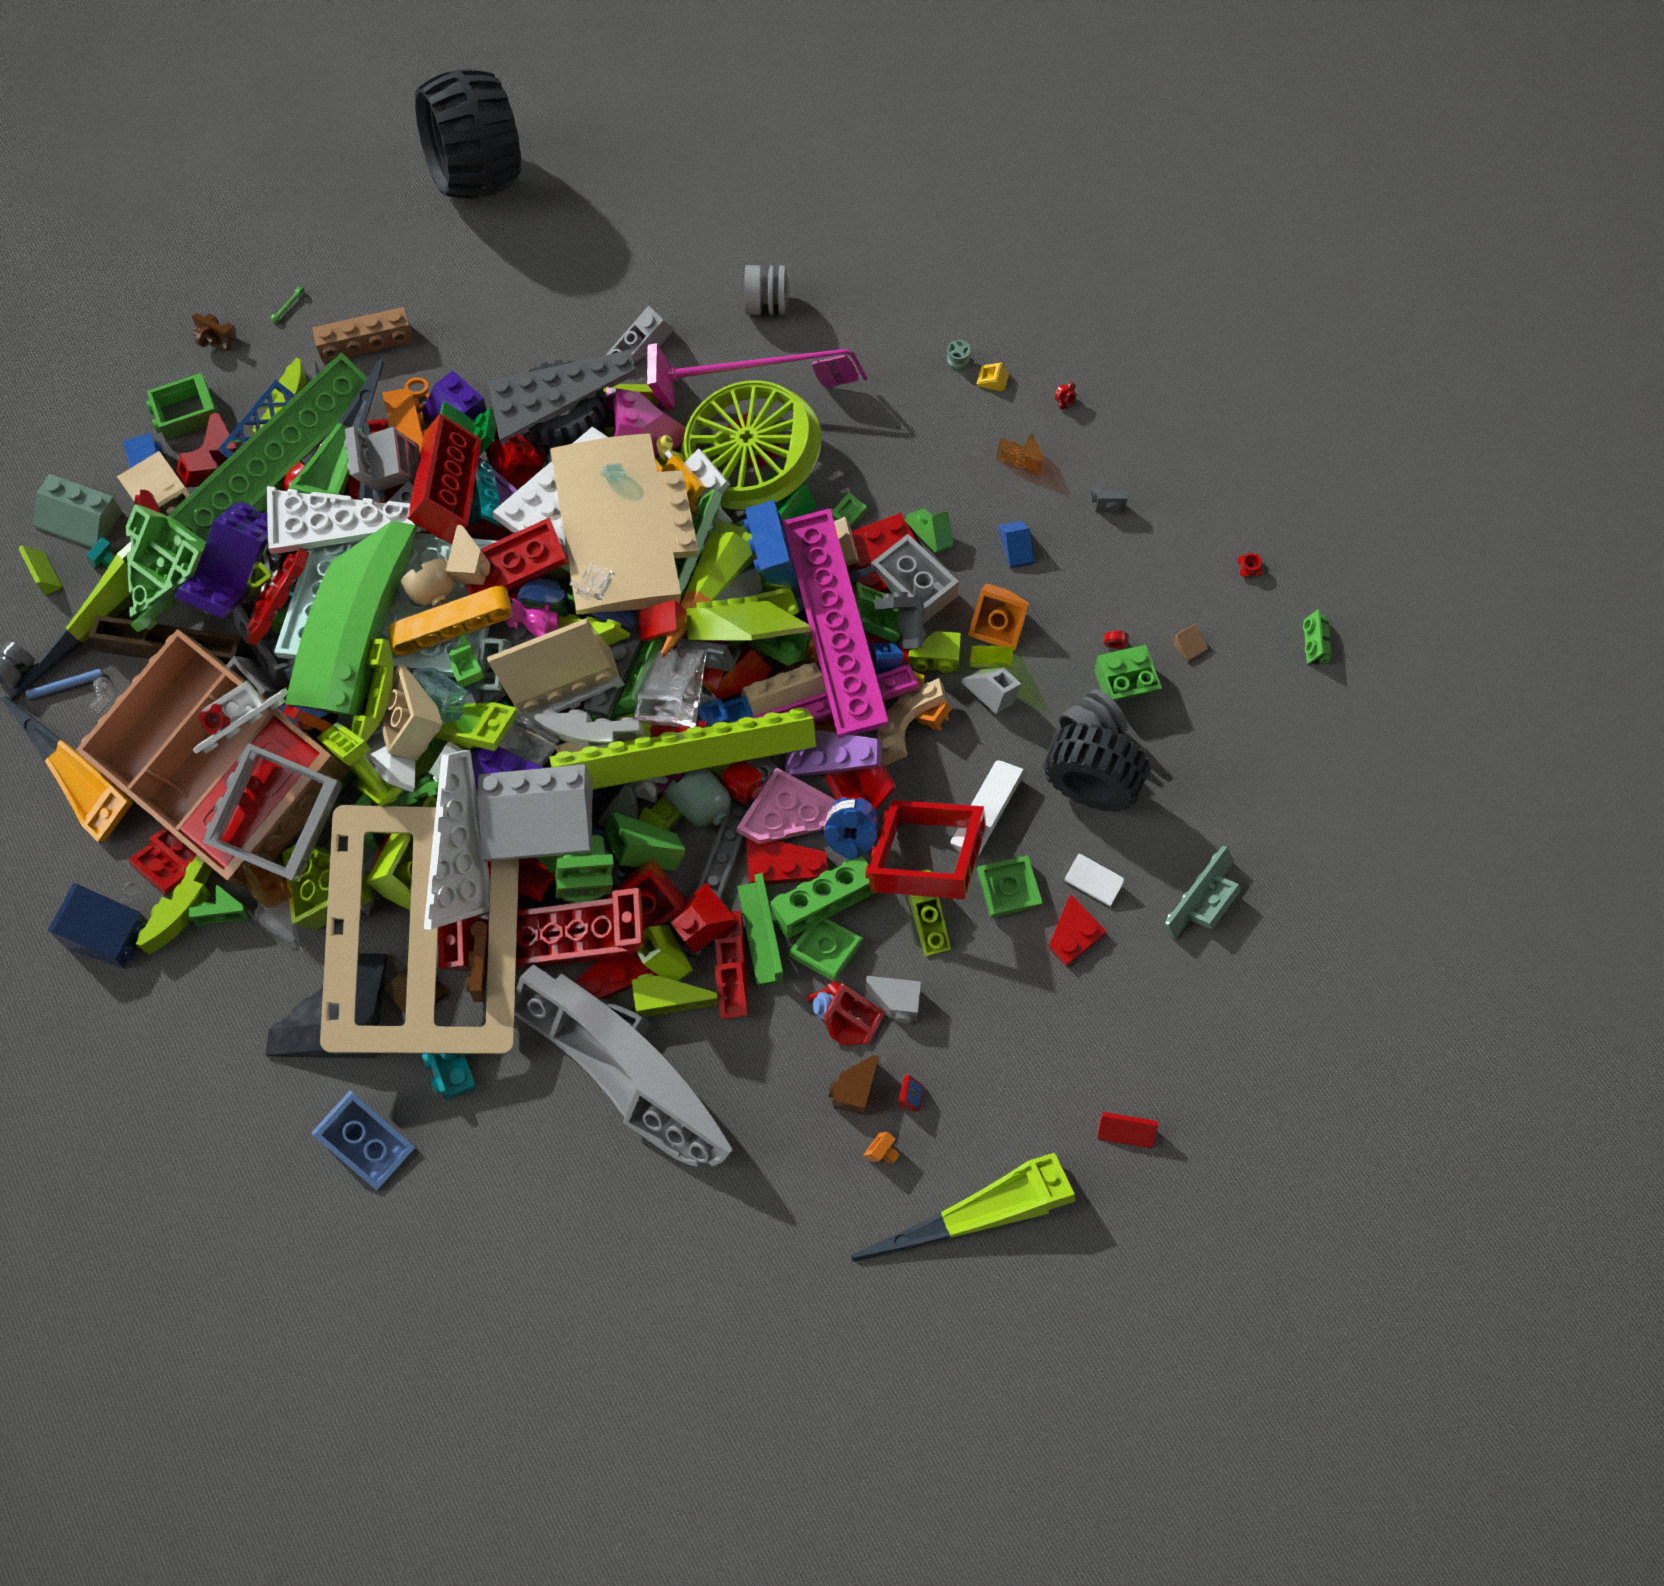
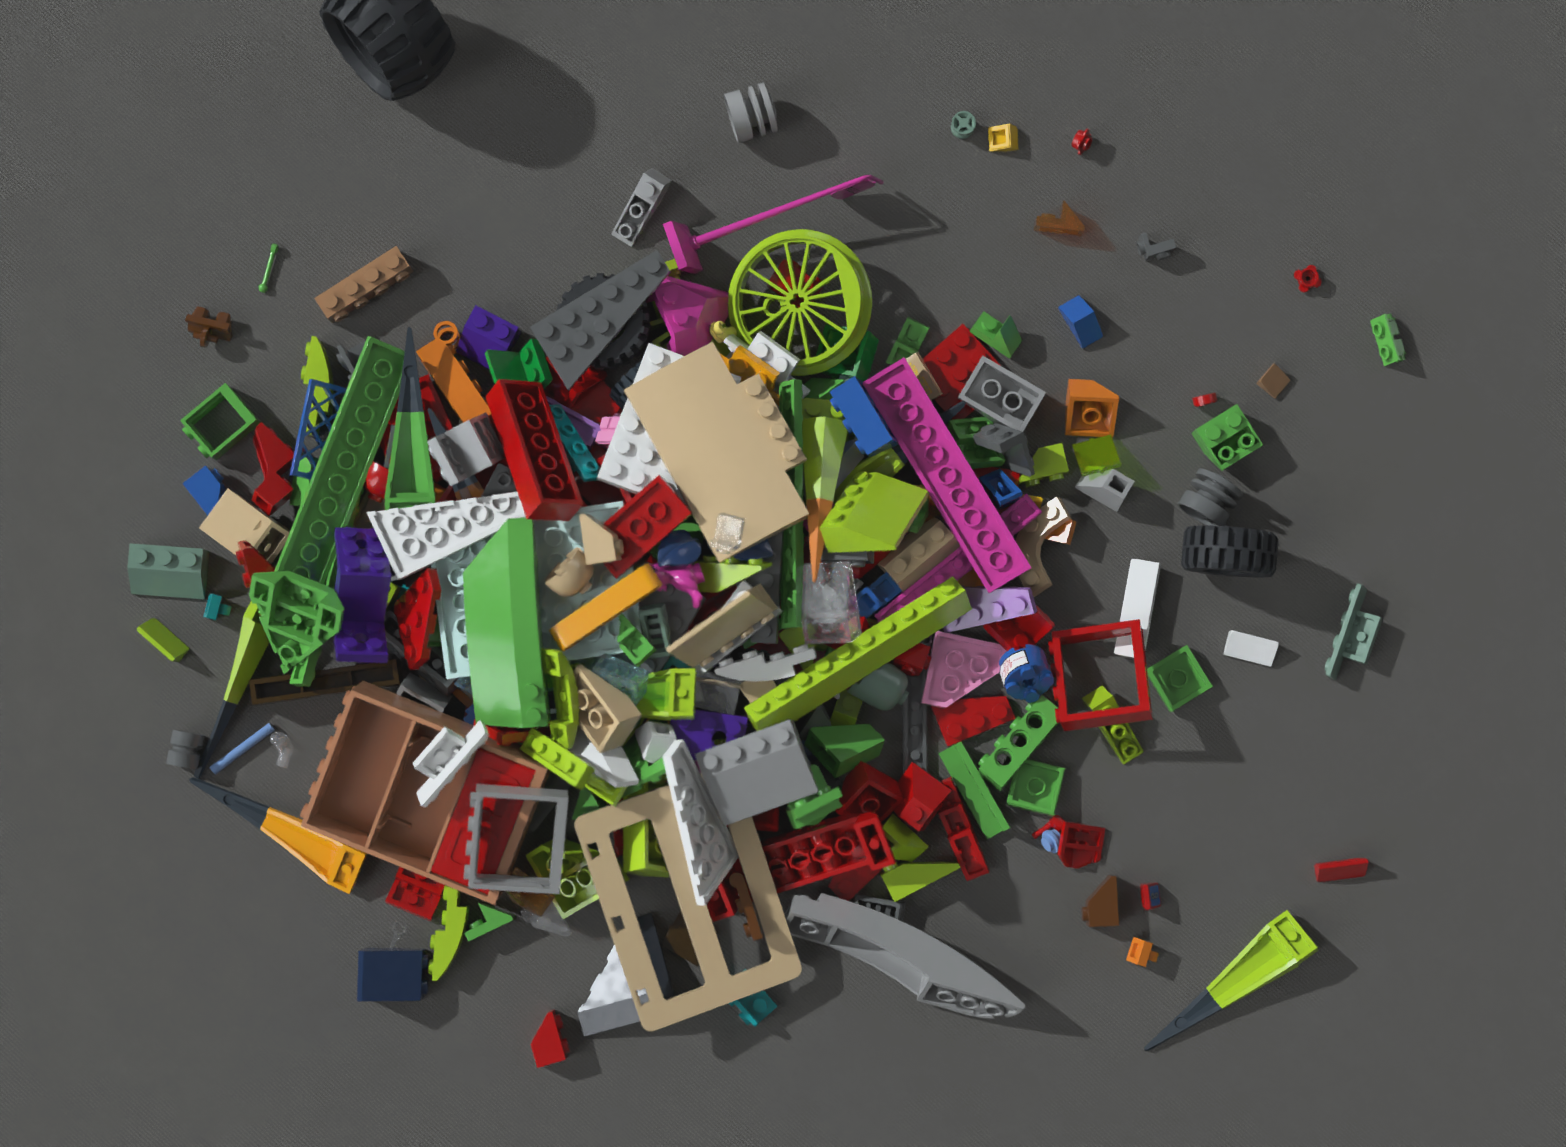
camera: 20 degrees left, 20 degrees up
(213, 726) = (432, 778): red plate -> none
(224, 1046) = (548, 1043): none -> red slope
(363, 1140) = (700, 1084): medium blue slope -> none
(612, 471) = (698, 403): clear light blue plate -> none
(661, 620) = (799, 544): red slope -> none
(896, 997) = (1113, 814): light grey slope -> none
(1074, 932) = (1247, 702): red wing -> none

